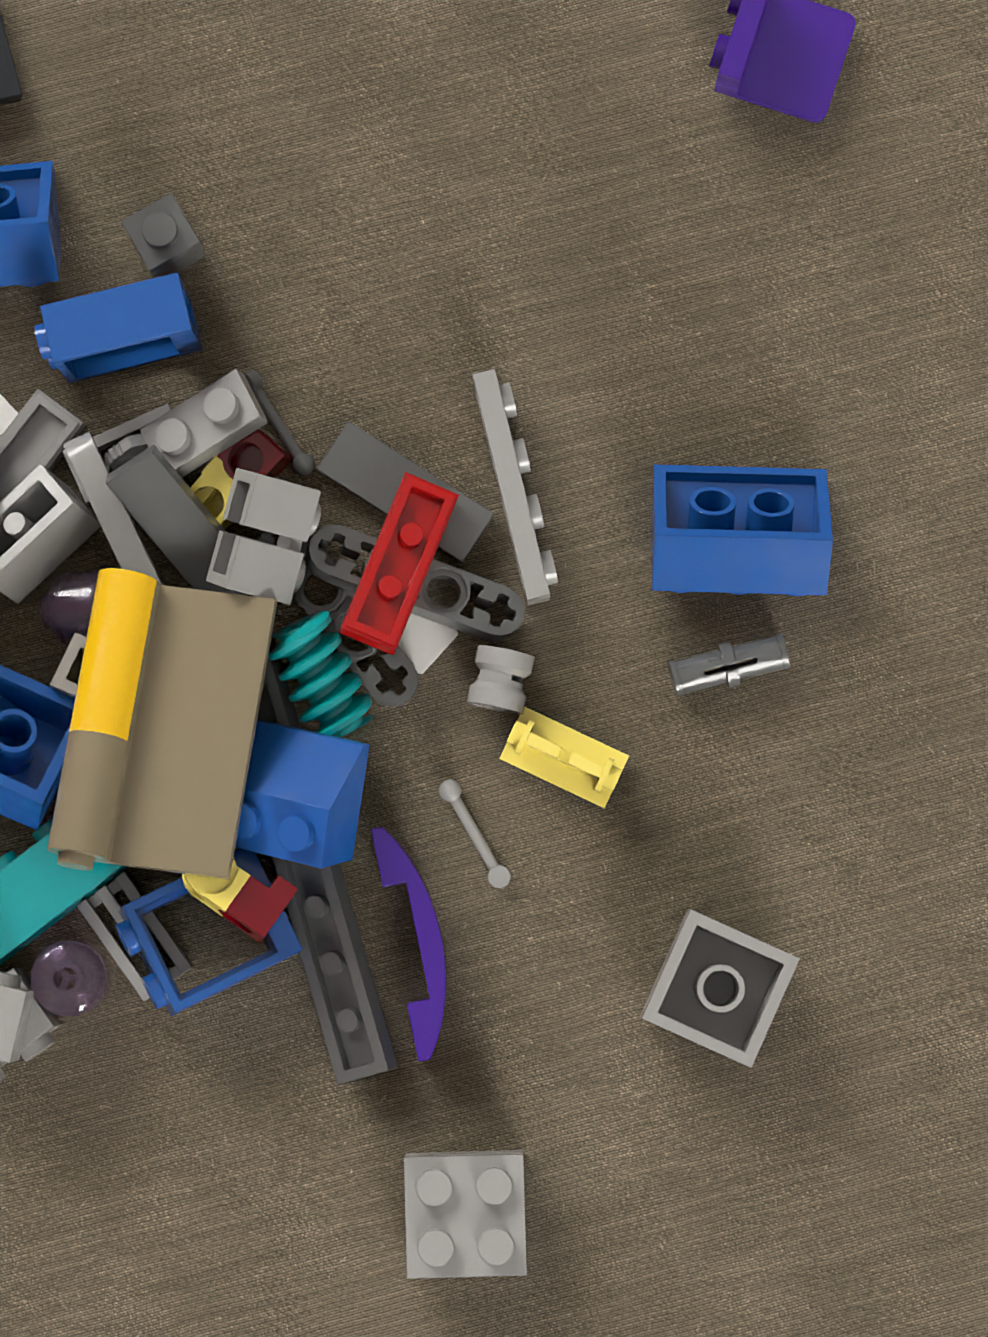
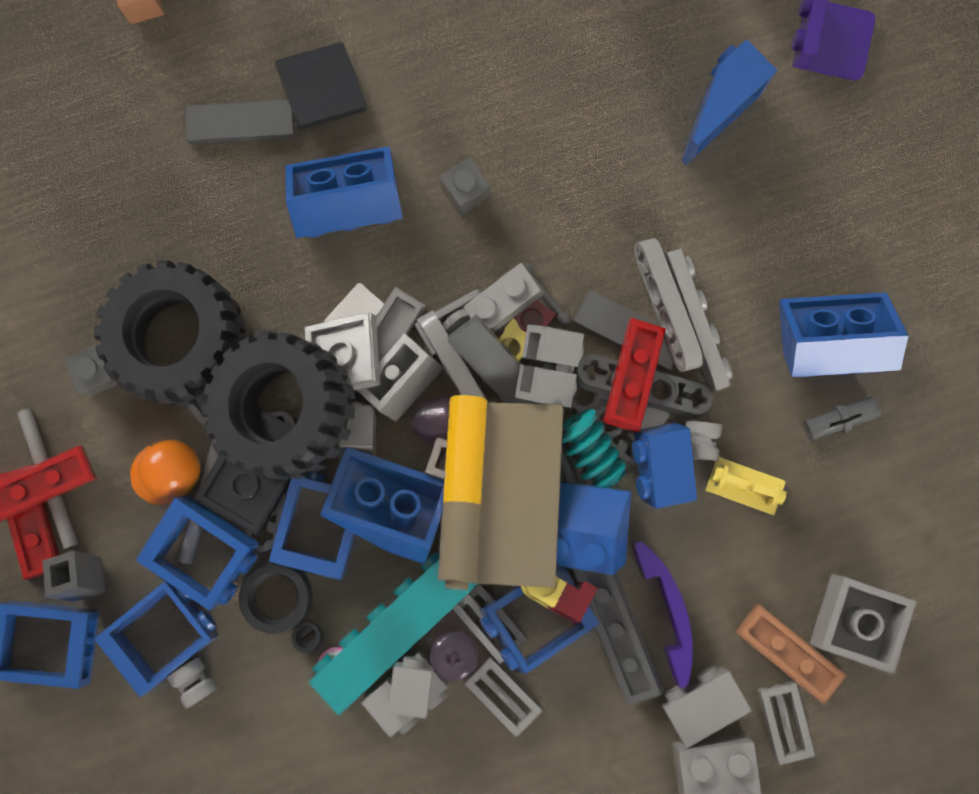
camera: 10 degrees left, 0 degrees up
(118, 328) = (445, 243): blue window -> none
(127, 1069) = (525, 718): none -> light grey tile
(432, 711) = (665, 465): none -> blue brick
(457, 1096) = (704, 705): none -> light grey brick
(466, 457) = (668, 305): none -> light grey beam
(498, 874) = (710, 563): light grey hinge -> none
(595, 1187) = (778, 691): none -> light grey tile
(603, 124) = (735, 85): none -> blue slope
(608, 1030) = (790, 653): none -> nougat tile

